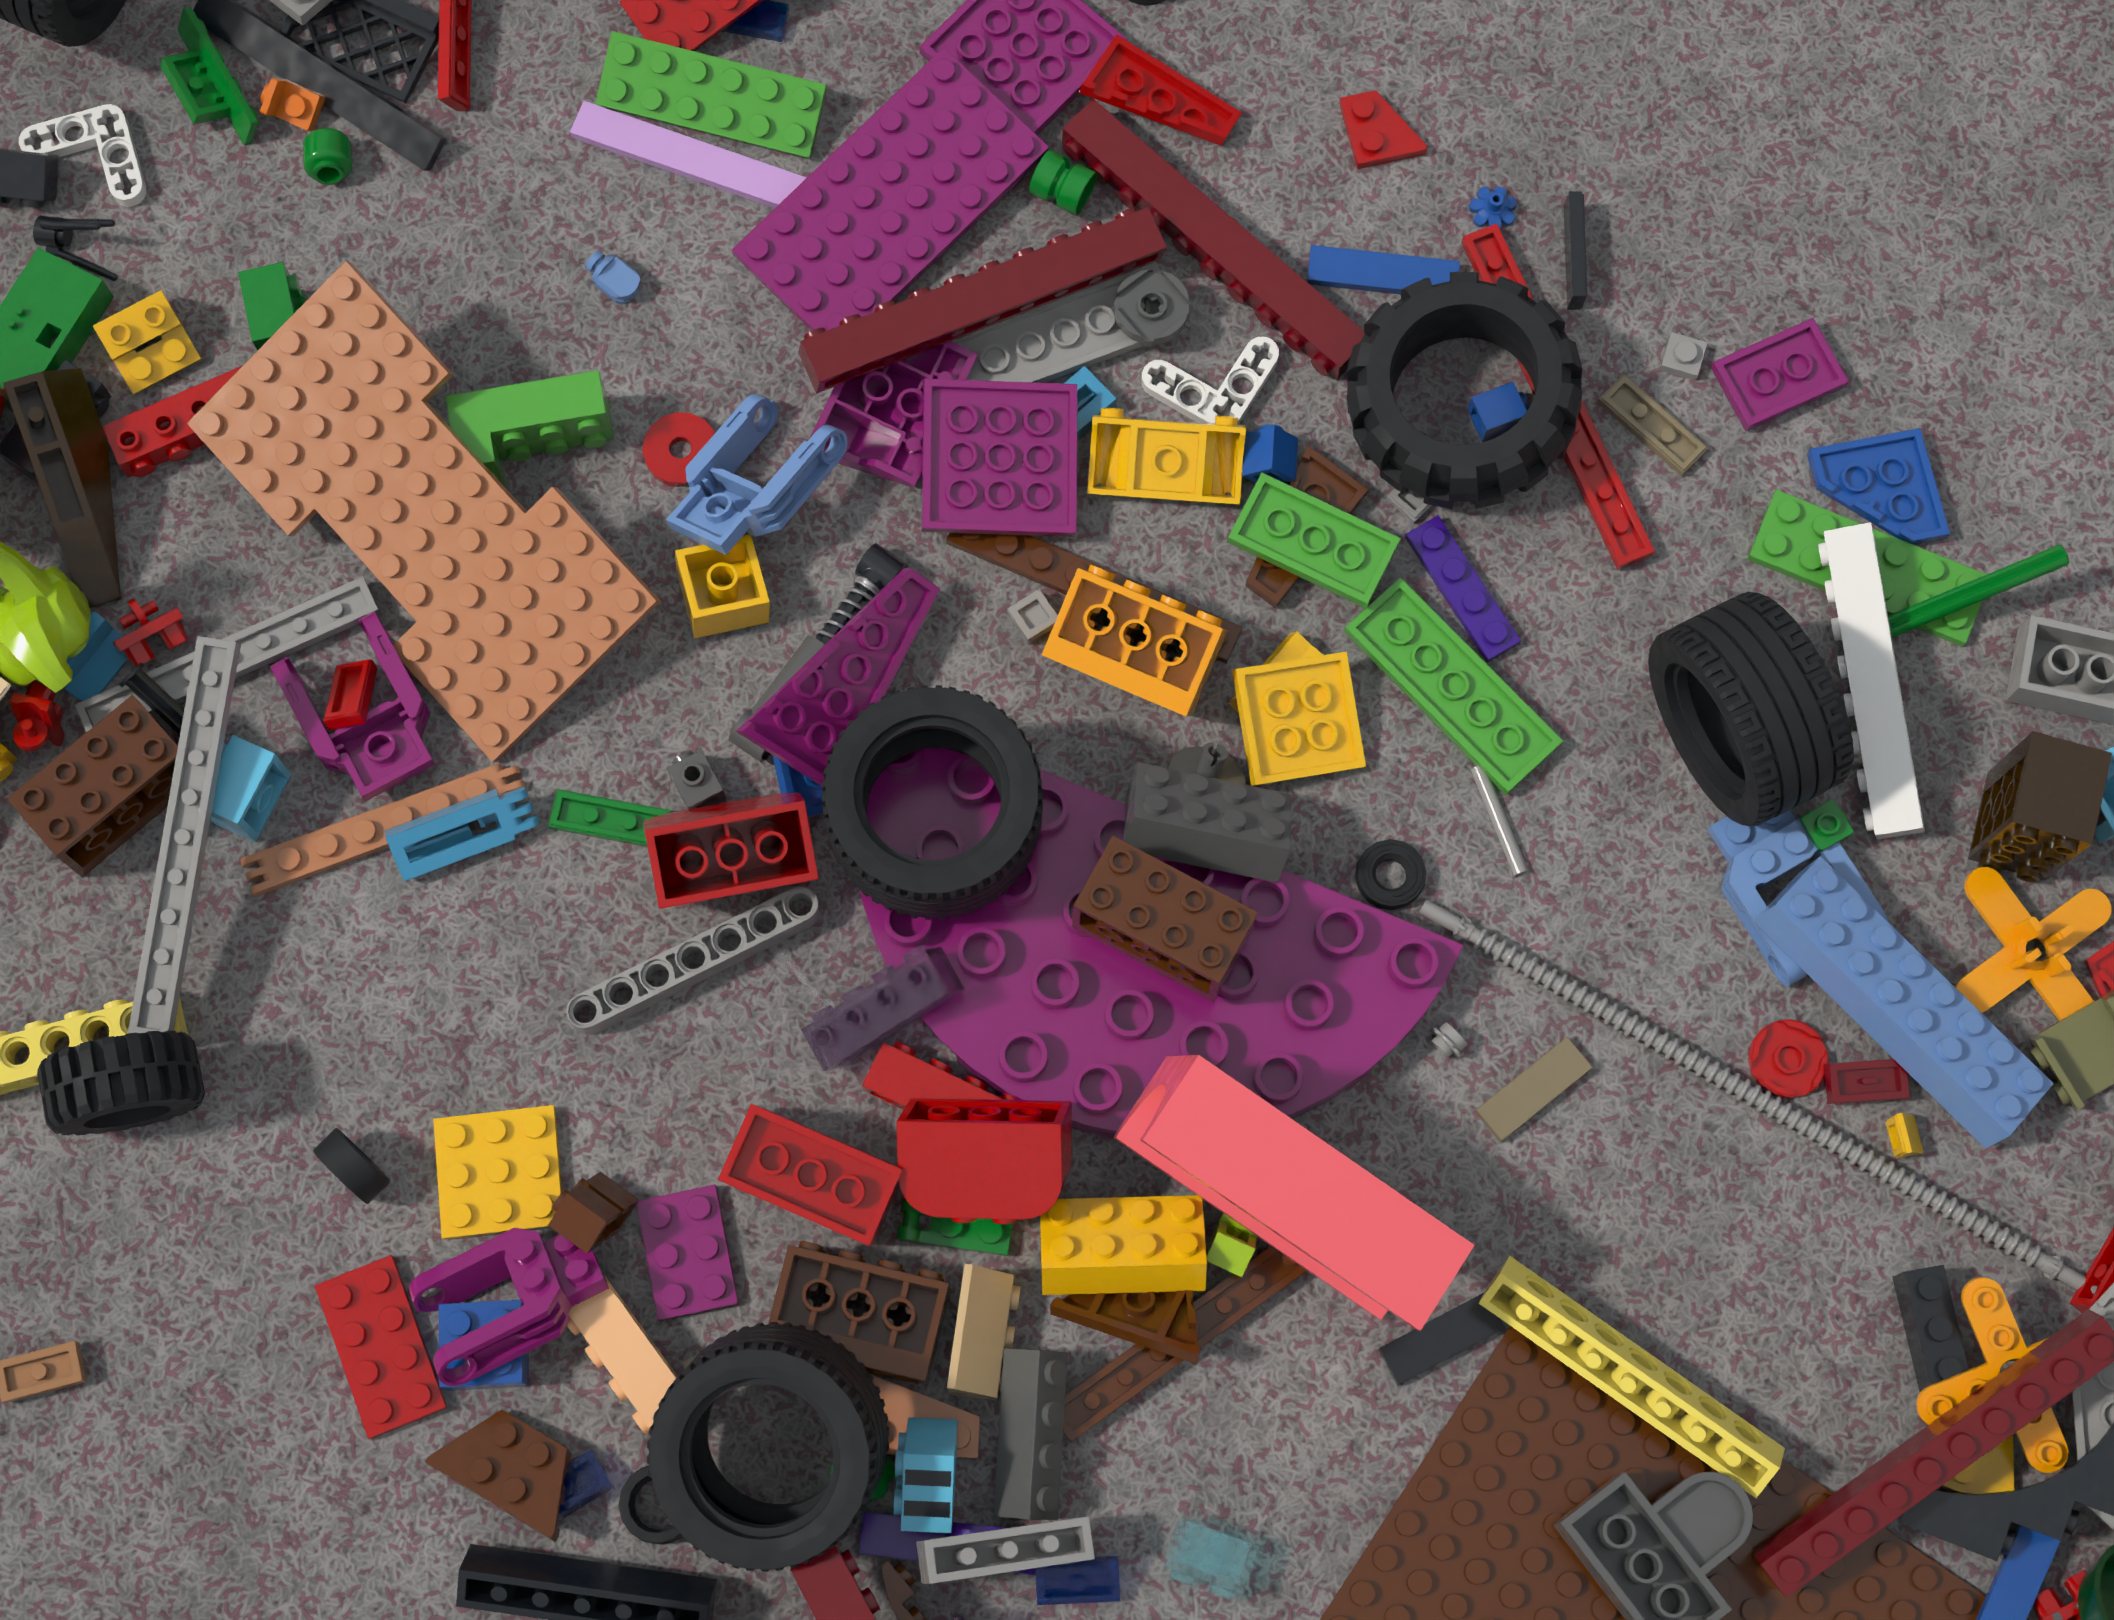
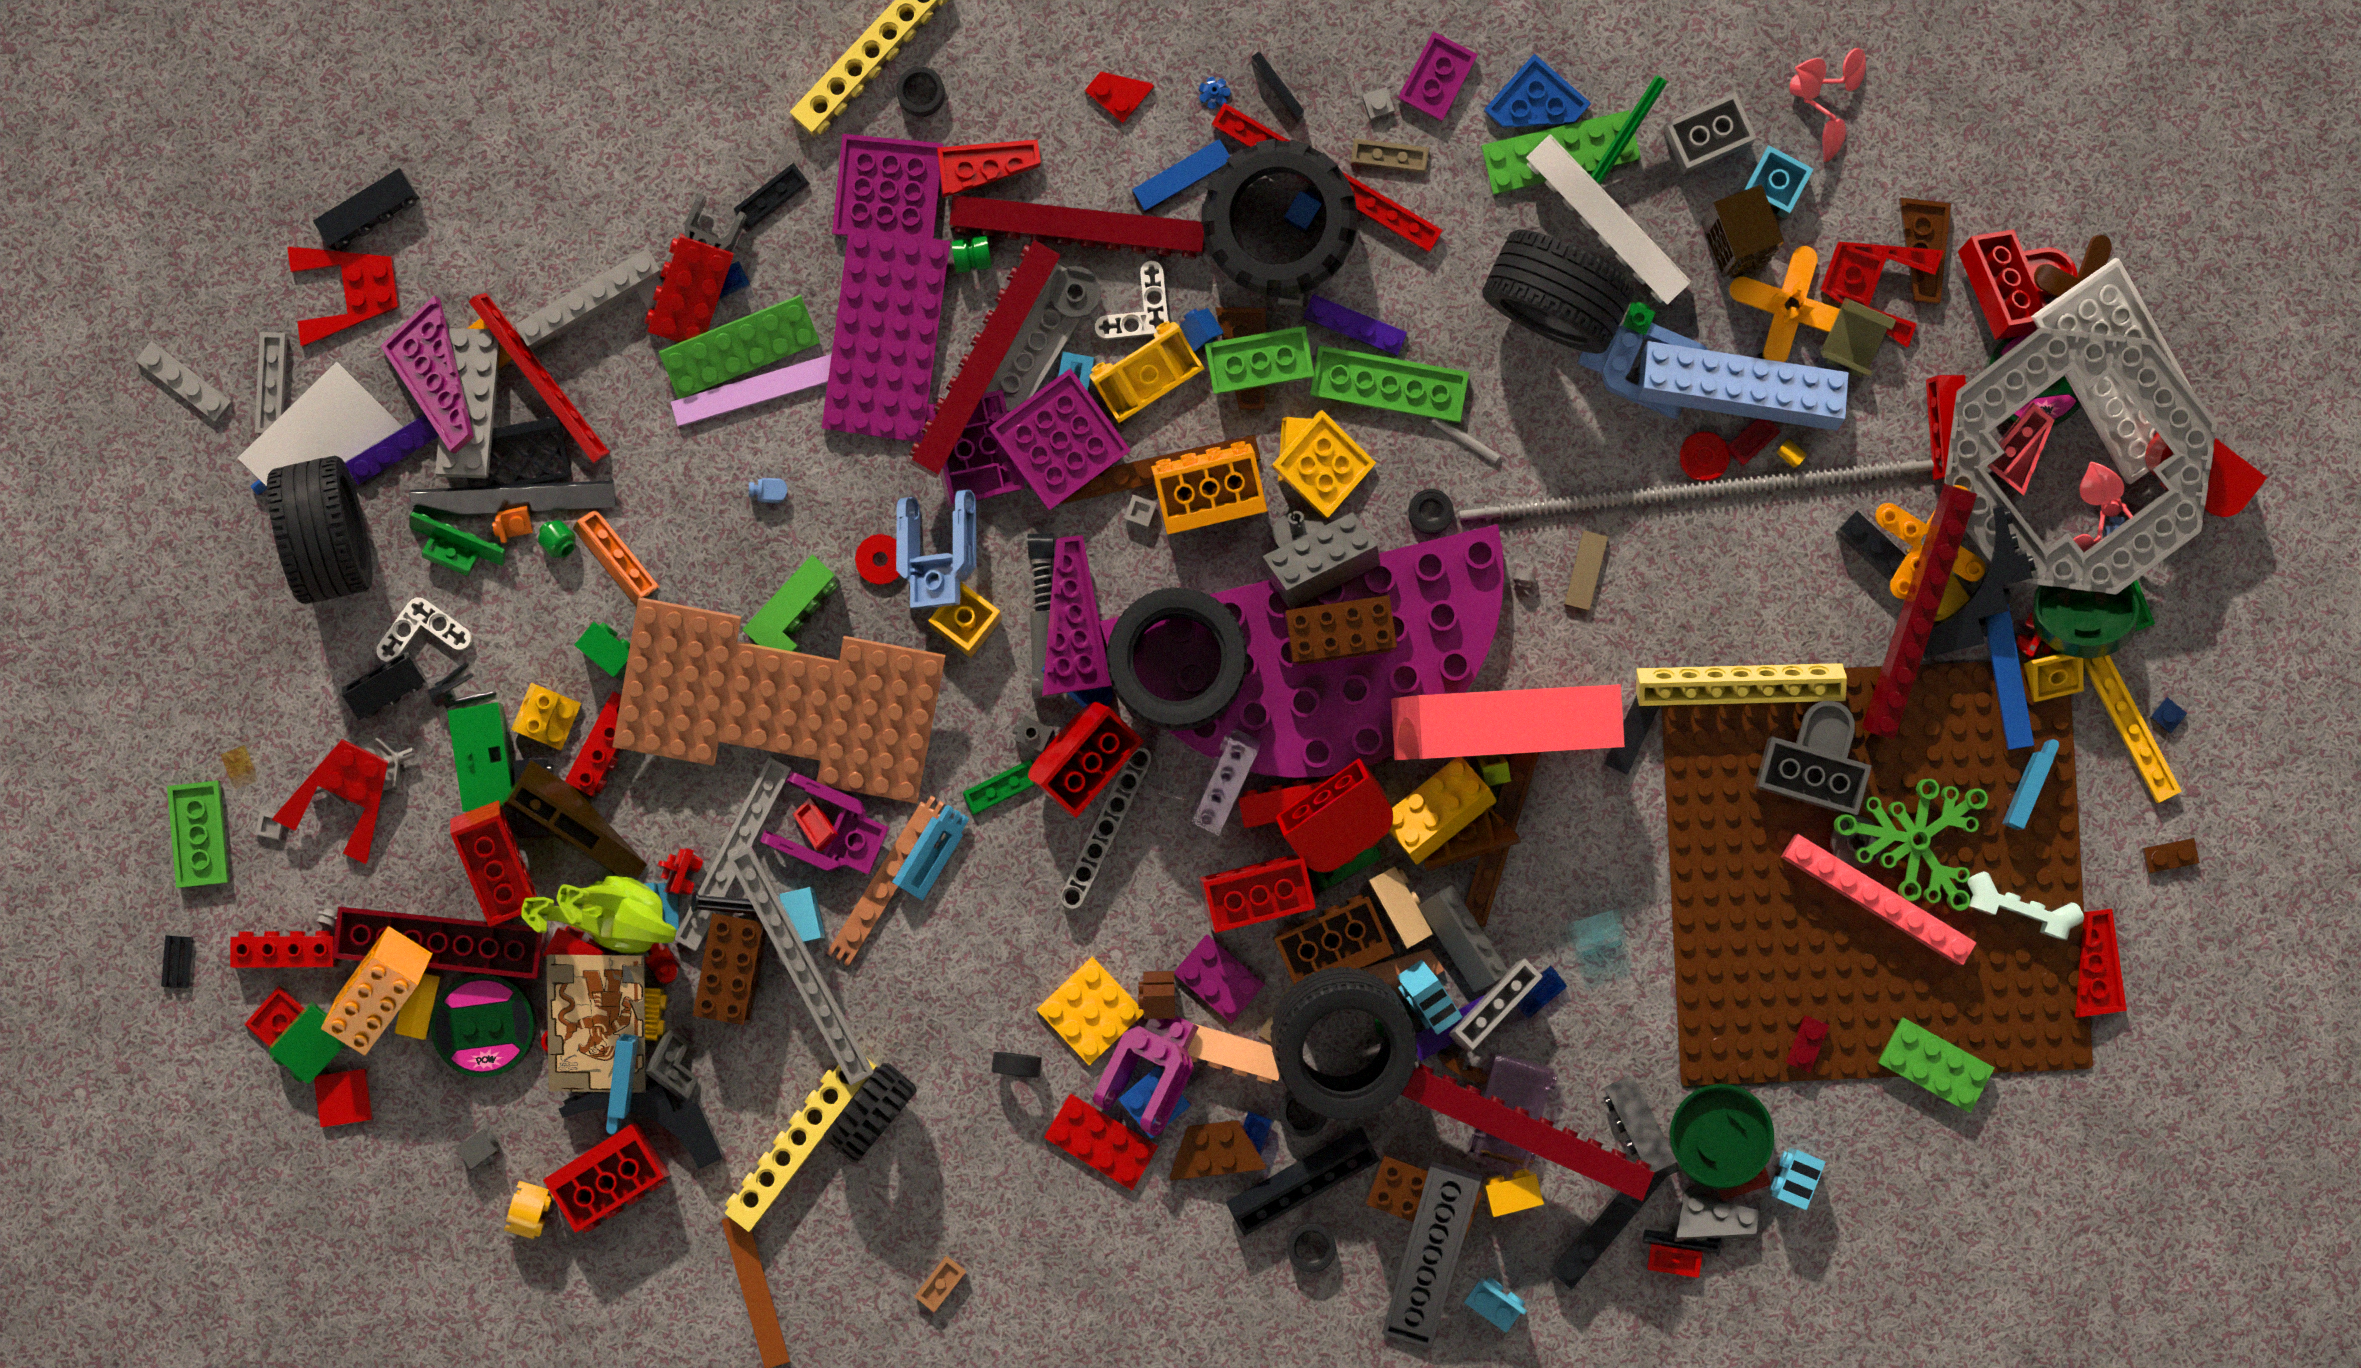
camera: 30 degrees left, 10 degrees up
(380, 222) = (615, 556): none -> orange slope

